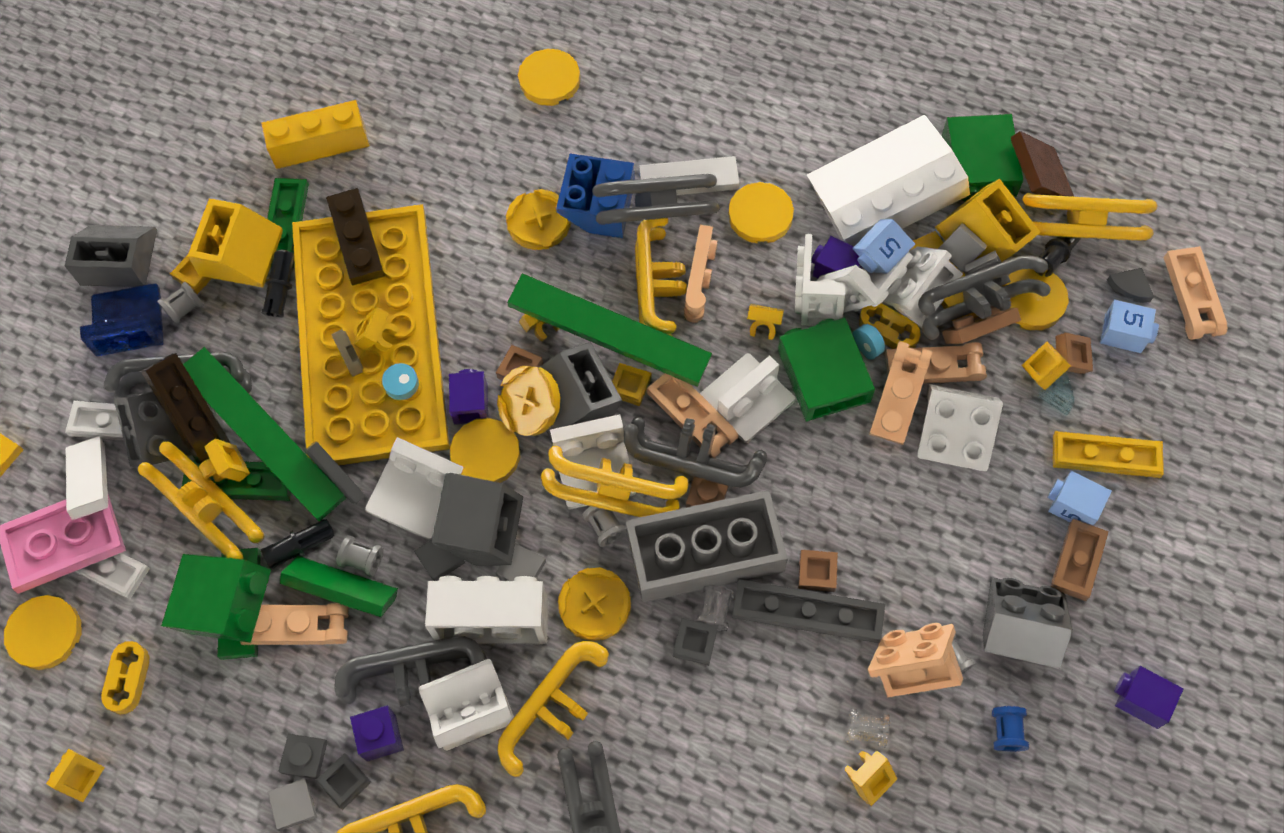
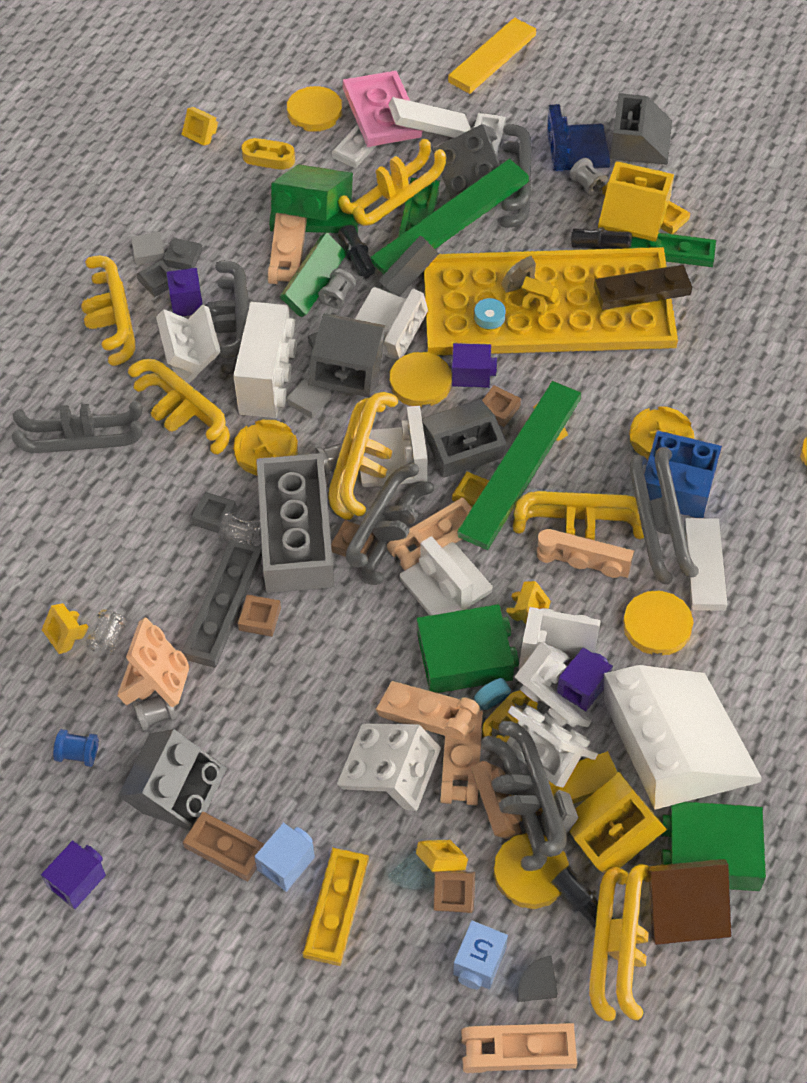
camera: 95 degrees right, 10 degrees down
(184, 405) = (475, 163): dark brown plate -> none
(224, 462) = (427, 196): yellow tile -> none
(315, 134) = (759, 265): yellow brick -> none
(528, 400) = (456, 400): yellow tile -> none
(883, 246) = (585, 699): light blue brick -> none
(963, 247) = (590, 792): light grey tile -> none

